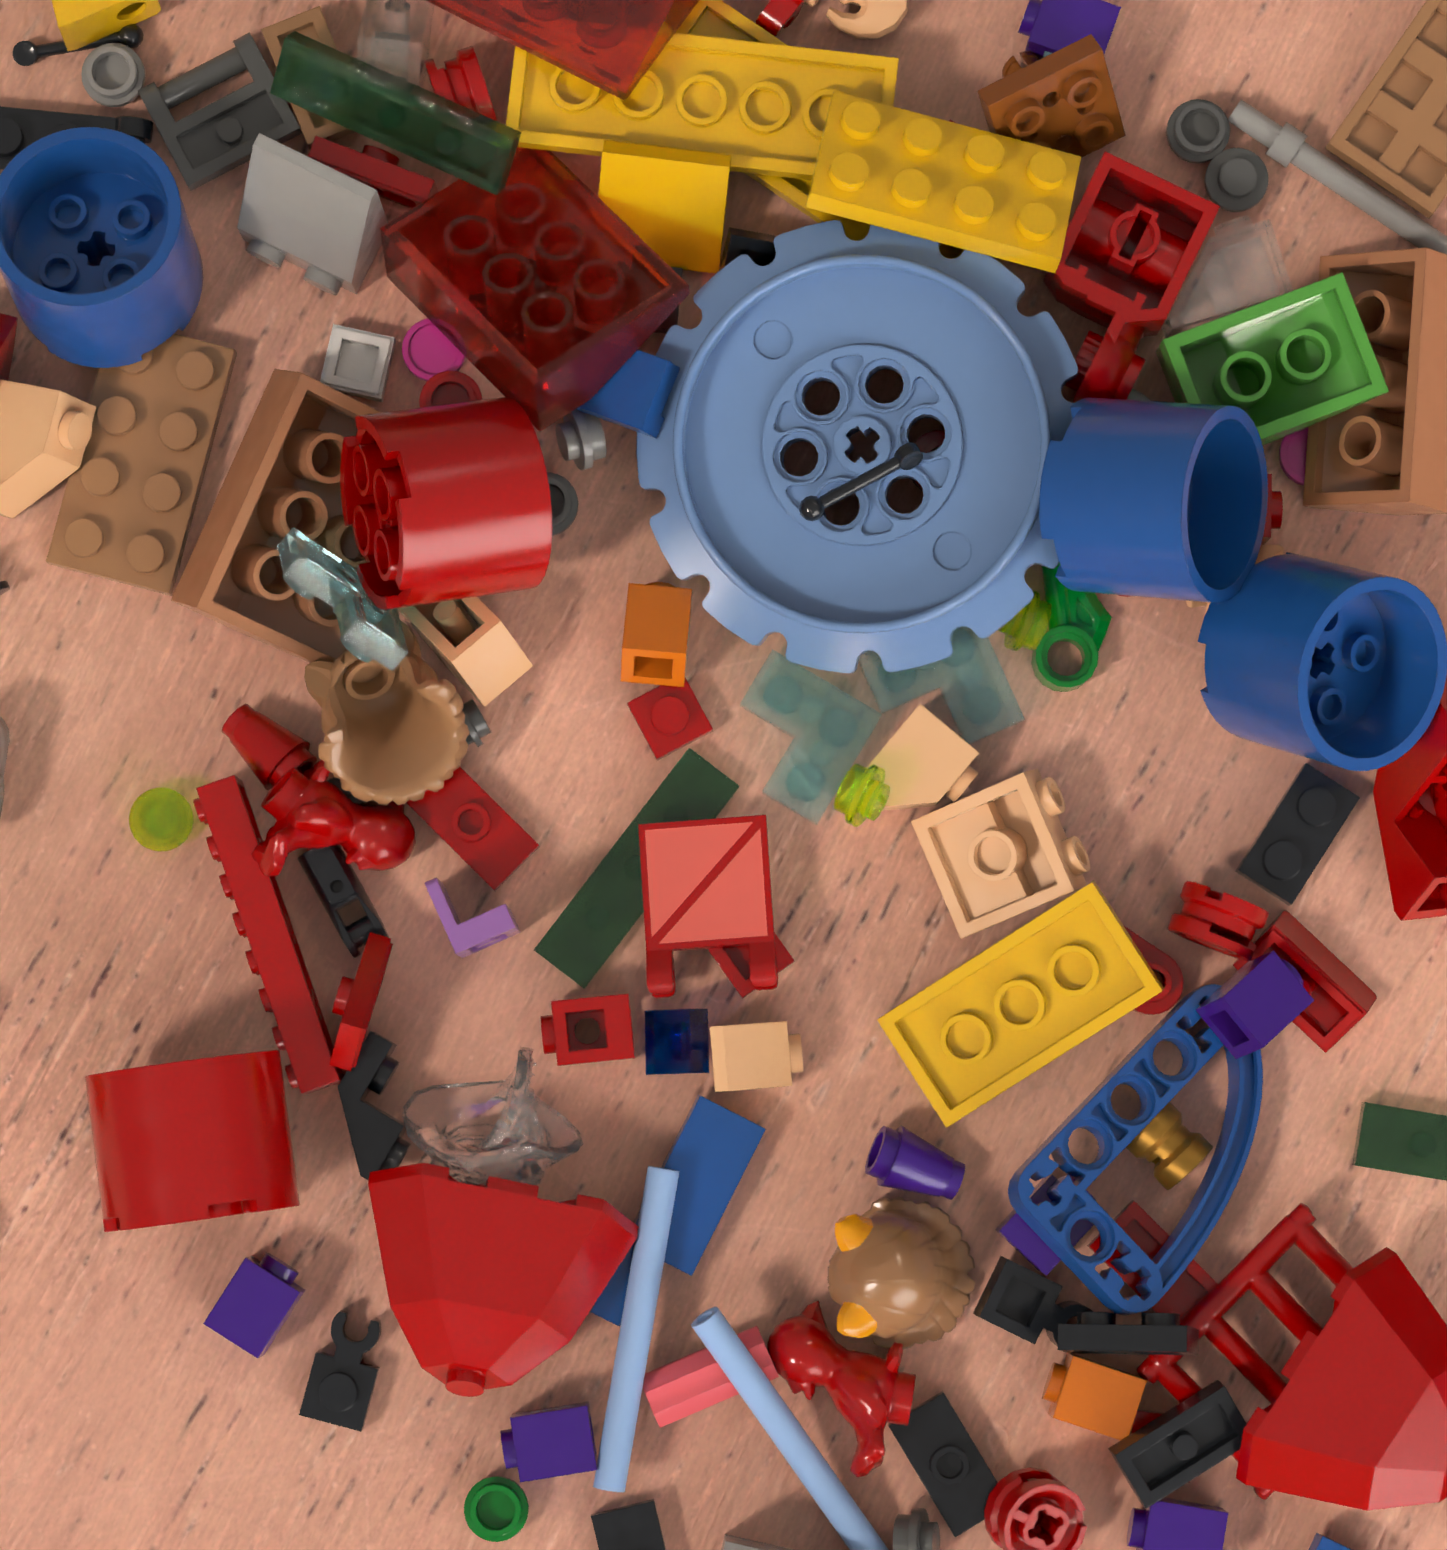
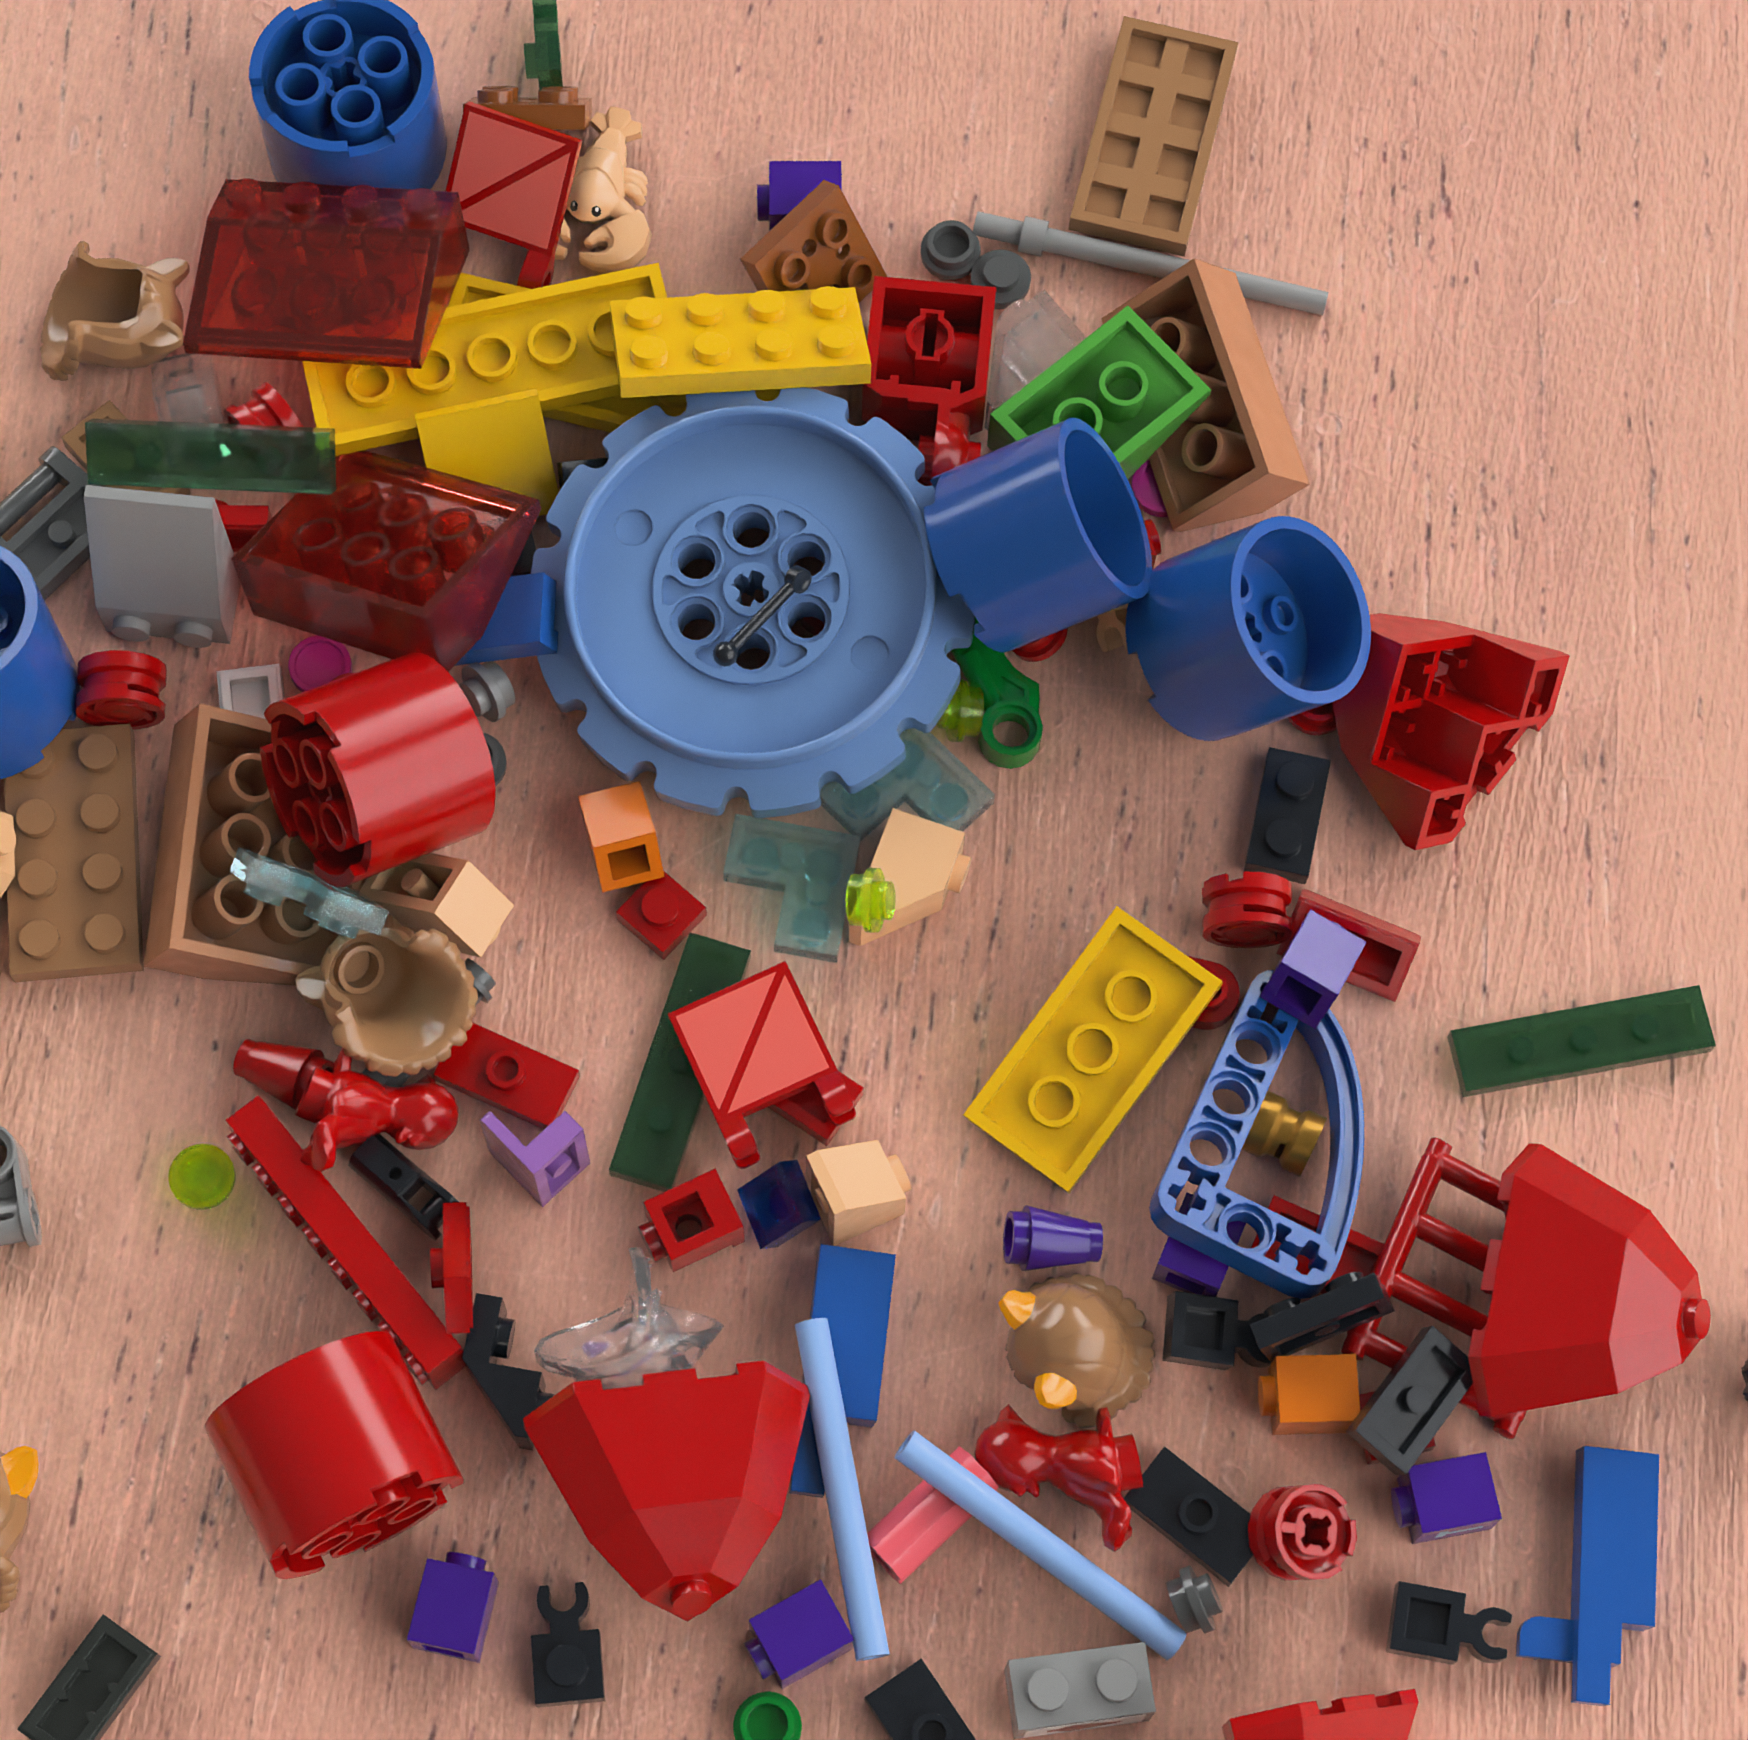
camera: 20 degrees left, 15 degrees down
(235, 317) = (121, 689): none -> red wheel
(1002, 851) = (1019, 920): light nougat plate -> none

